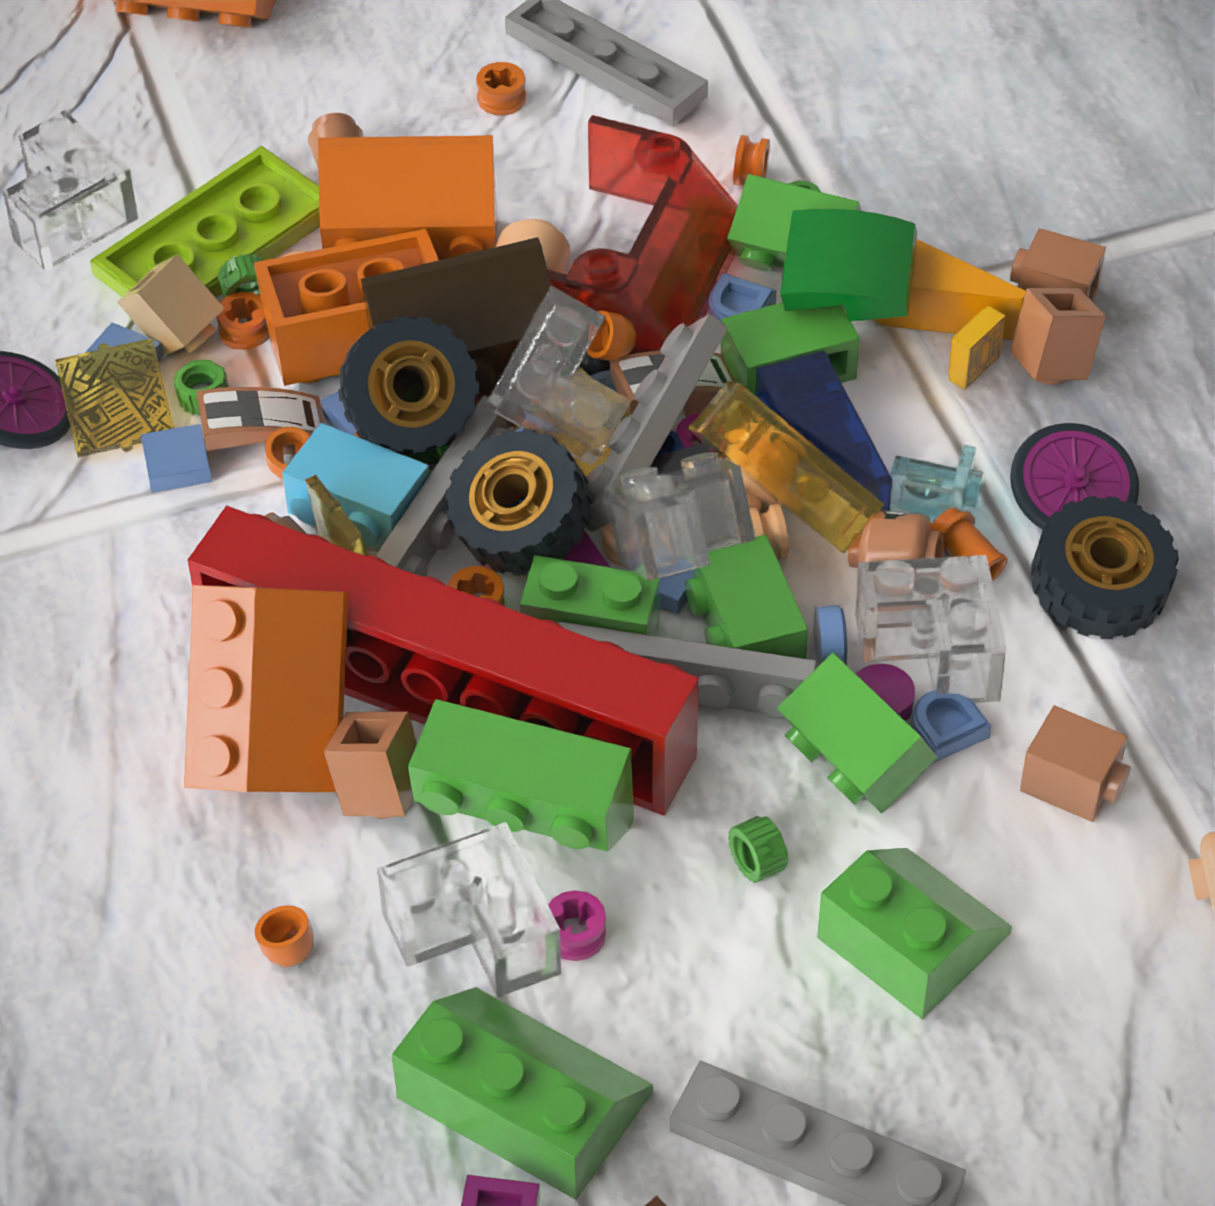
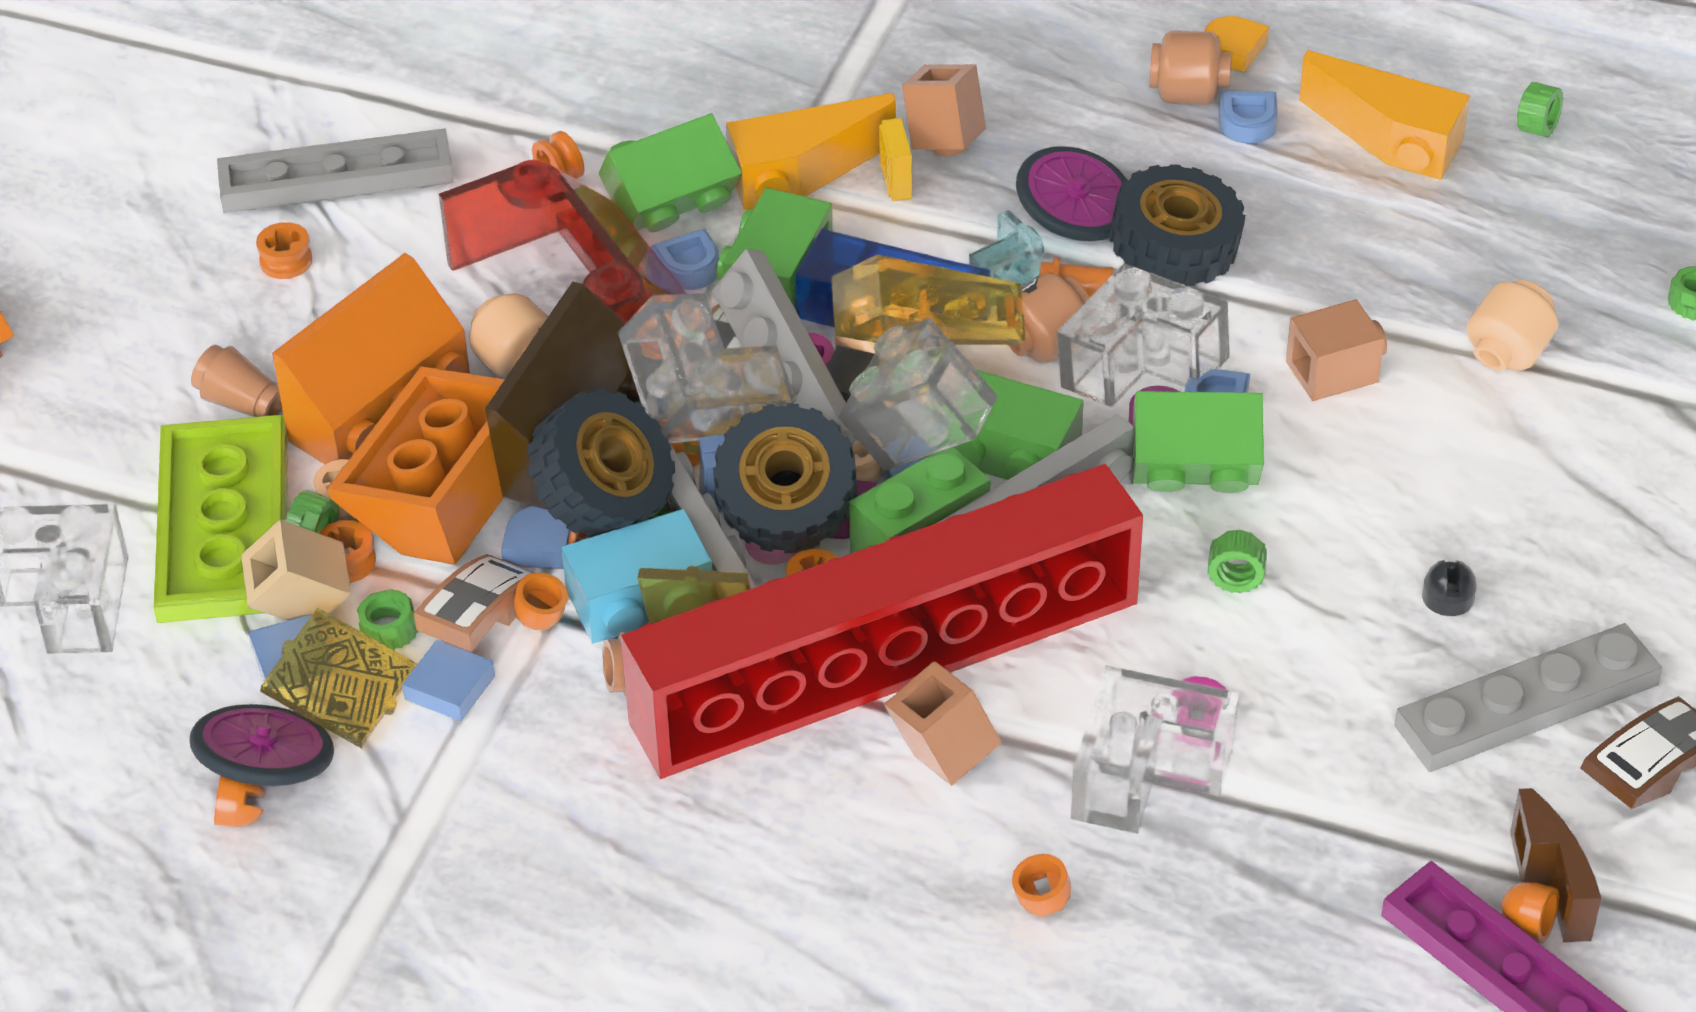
camera: 50 degrees left, 5 degrees down
(264, 688) = (820, 732): orange slope -> none
(517, 1087) = (1328, 830): bright green slope -> none
(523, 776) = (1069, 631): bright green slope -> none
(830, 633) = (1097, 397): medium blue tile -> none
(850, 262) = (763, 157): green slope -> none
(897, 1023) = (1435, 588): none -> black hinge
(907, 926) = (1390, 527): bright green slope -> none
(1059, 263) = (875, 68): nougat brick -> none

